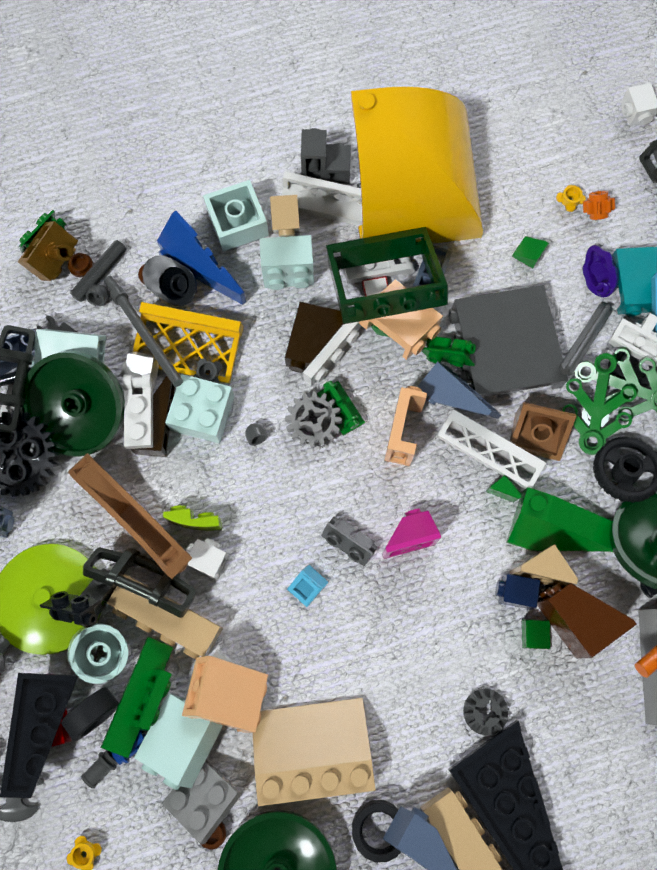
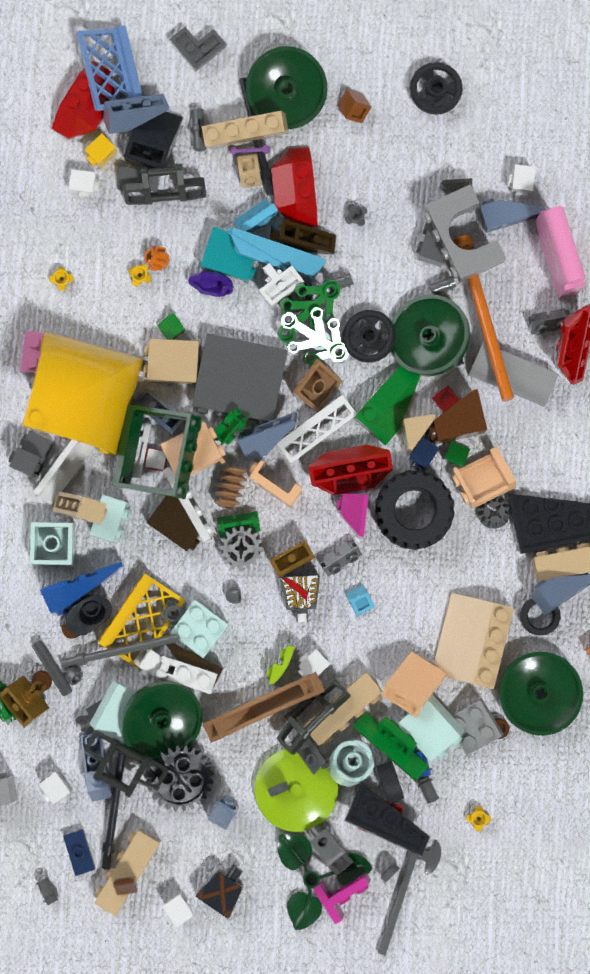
camera: 65 degrees left, 10 degrees up
(34, 573) = (278, 789): none -> dark grey tile
(72, 608) = (311, 773): black hinge -> none
(286, 510) = (300, 594): none -> torso
(324, 481) = (292, 558): none -> pearl gold brick
(378, 380) = (230, 487): none -> medium nougat piece
(460, 509) = (350, 469): none -> red wedge
(483, 601) = (414, 481): none -> black tyre
(493, 262) = (172, 361): none -> tan brick
(504, 489) = (347, 431): green slope -> none
(523, 682) = (484, 479): none -> light nougat panel
(528, 118) = (55, 278): none -> yellow plate
(585, 339) = (261, 321): dark grey axle -> none
(598, 589) = (445, 399): none -> red tile

